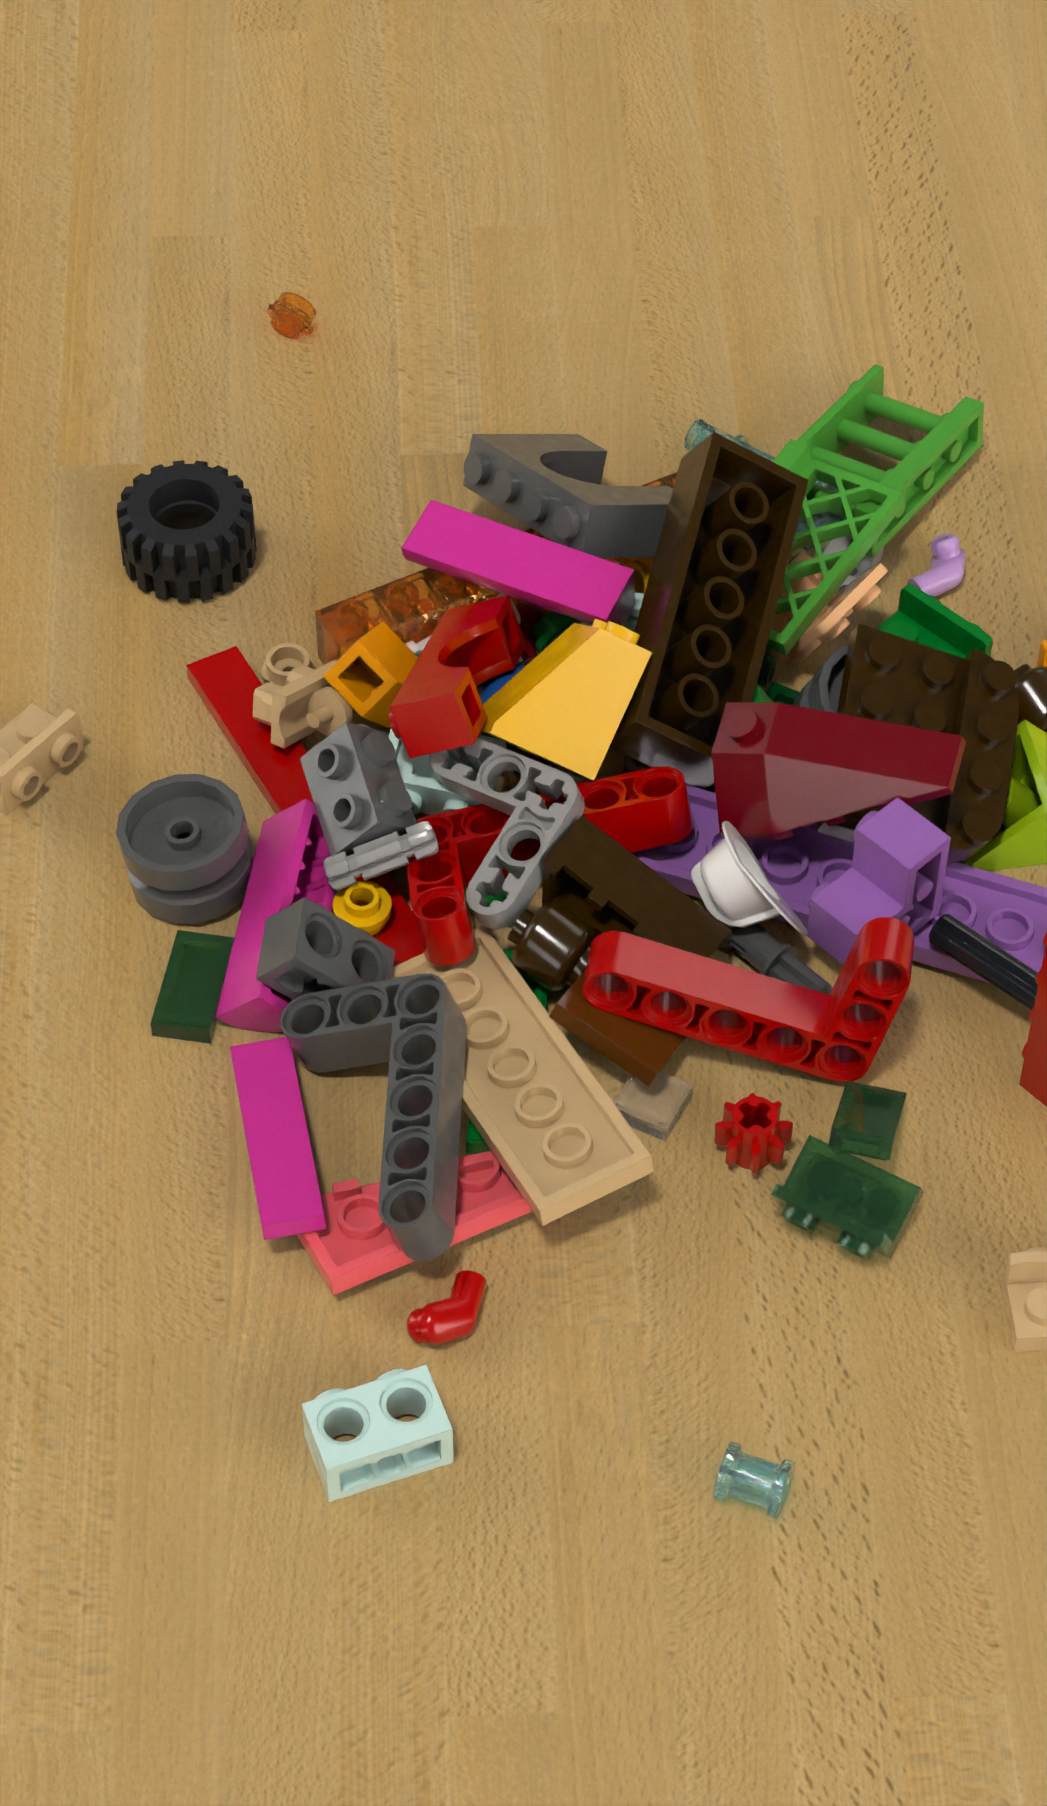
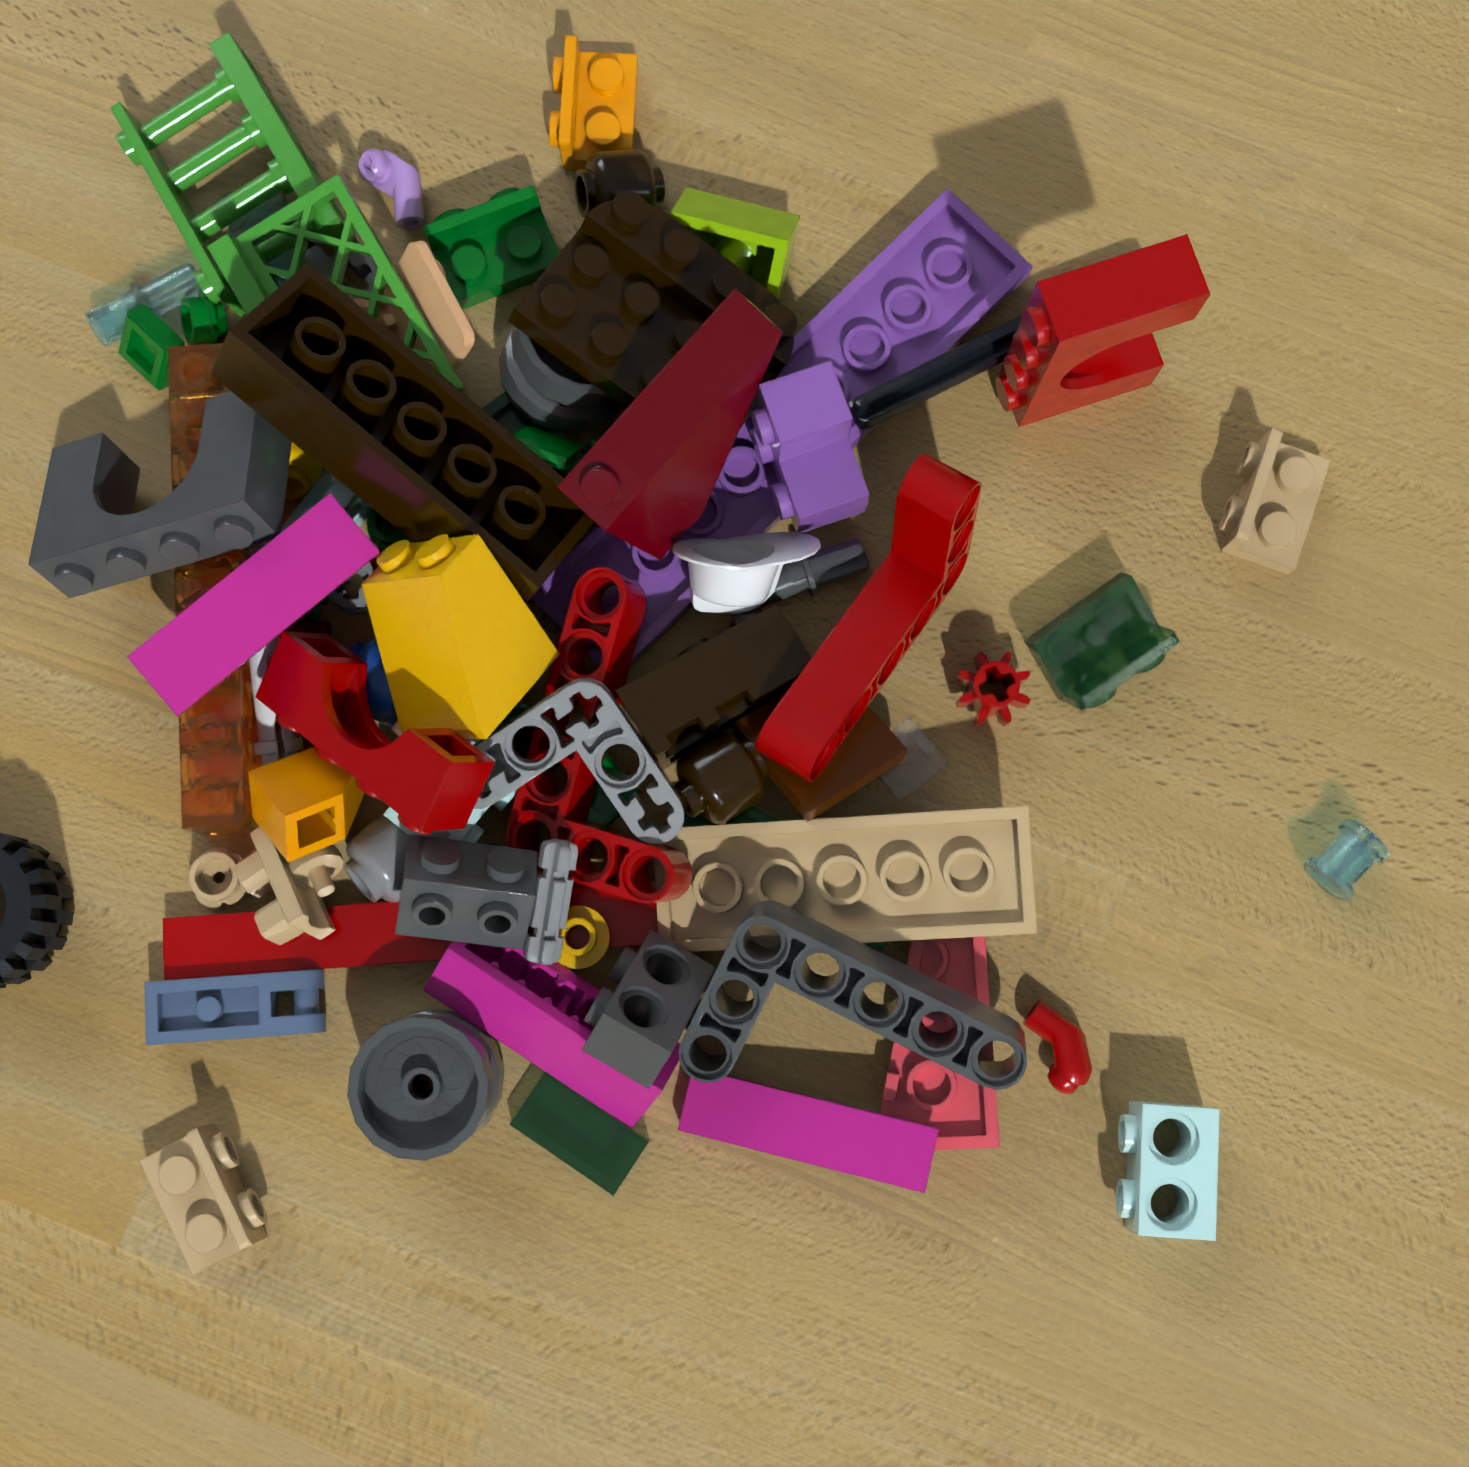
camera: 65 degrees left, 30 degrees up
(187, 715) = (232, 1007): none -> sand blue plate
(867, 1121) = (1031, 583): clear green tile -> none

